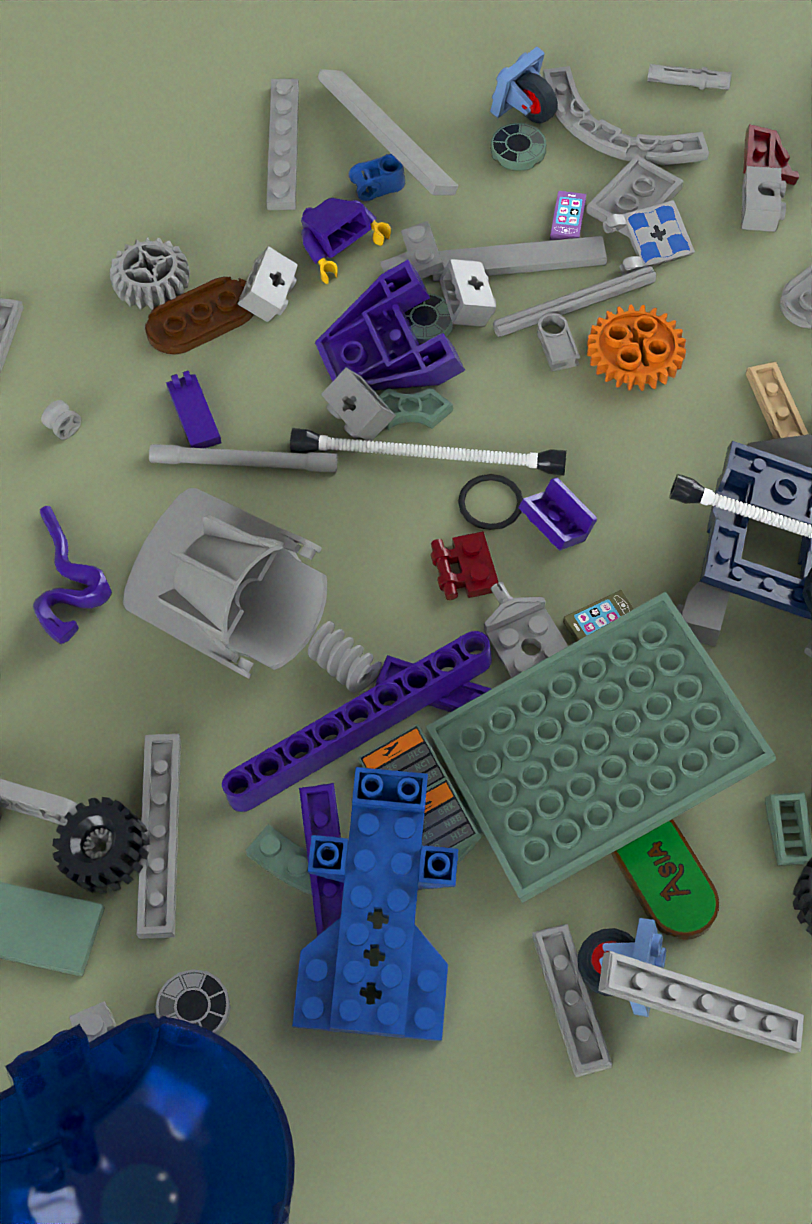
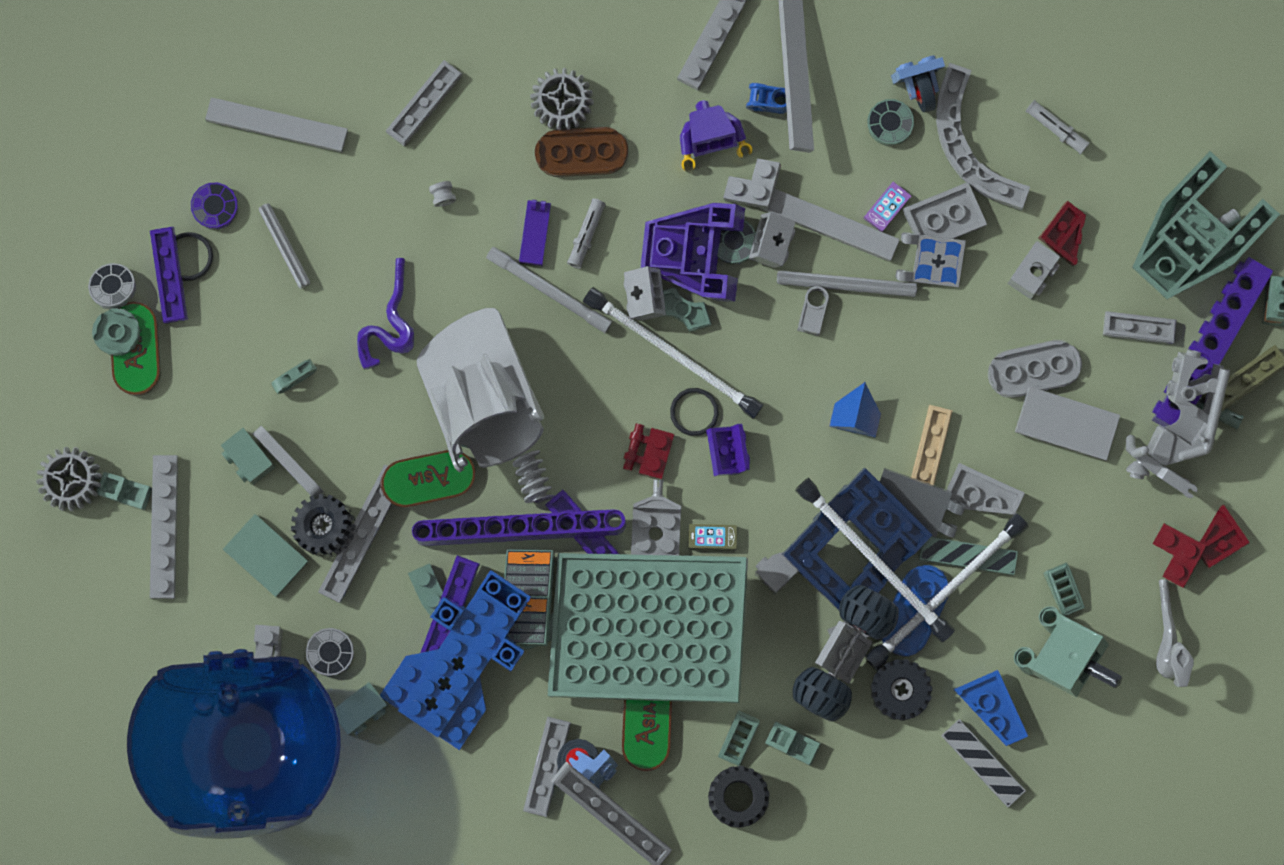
camera: 25 degrees right, 20 degrees up
(209, 723) = (425, 479): none -> green tile
(256, 410) = (587, 231): none -> light grey pin
(268, 285) = (637, 157): brick -> none
(280, 1050) = (360, 709): none -> sand green brick
(636, 347) = (882, 351): orange gear -> none
(674, 412) = (857, 412): none -> blue slope

